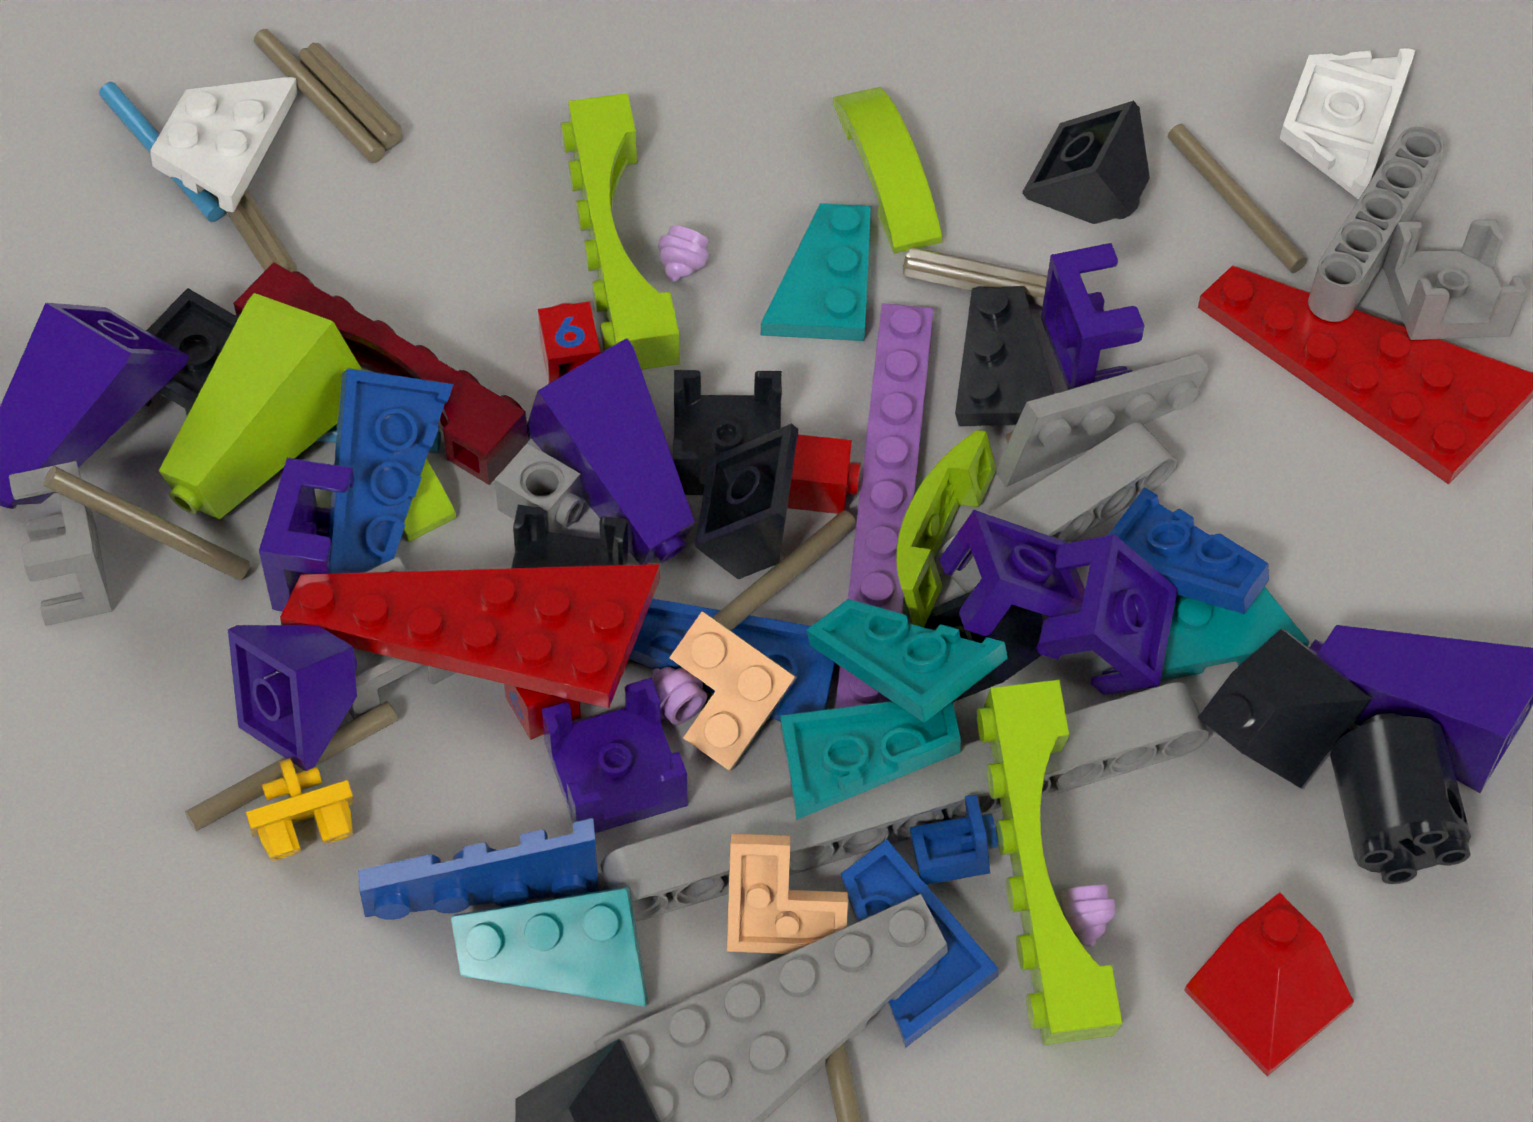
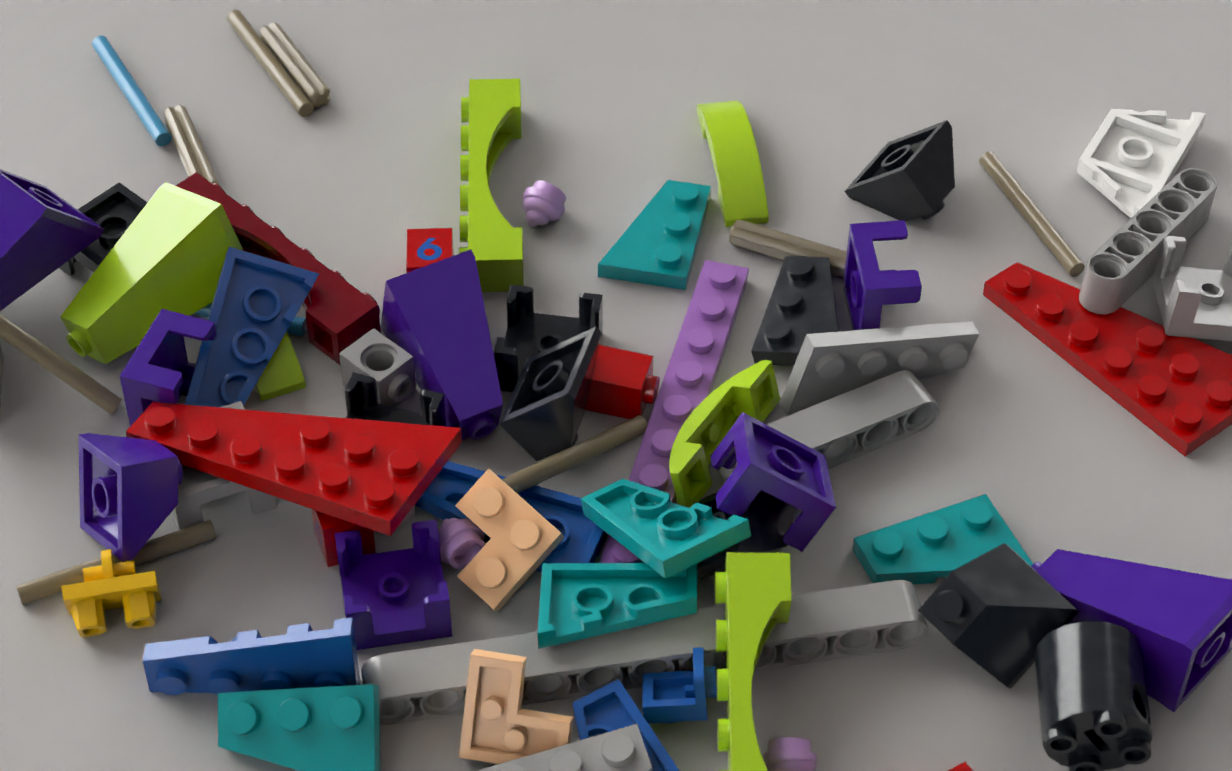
camera: 10 degrees right, 10 degrees down
(222, 135) = (182, 81): white wing -> none
(1121, 615) = (860, 513): dark purple panel -> none
(1192, 560) = (926, 481): blue wing -> none

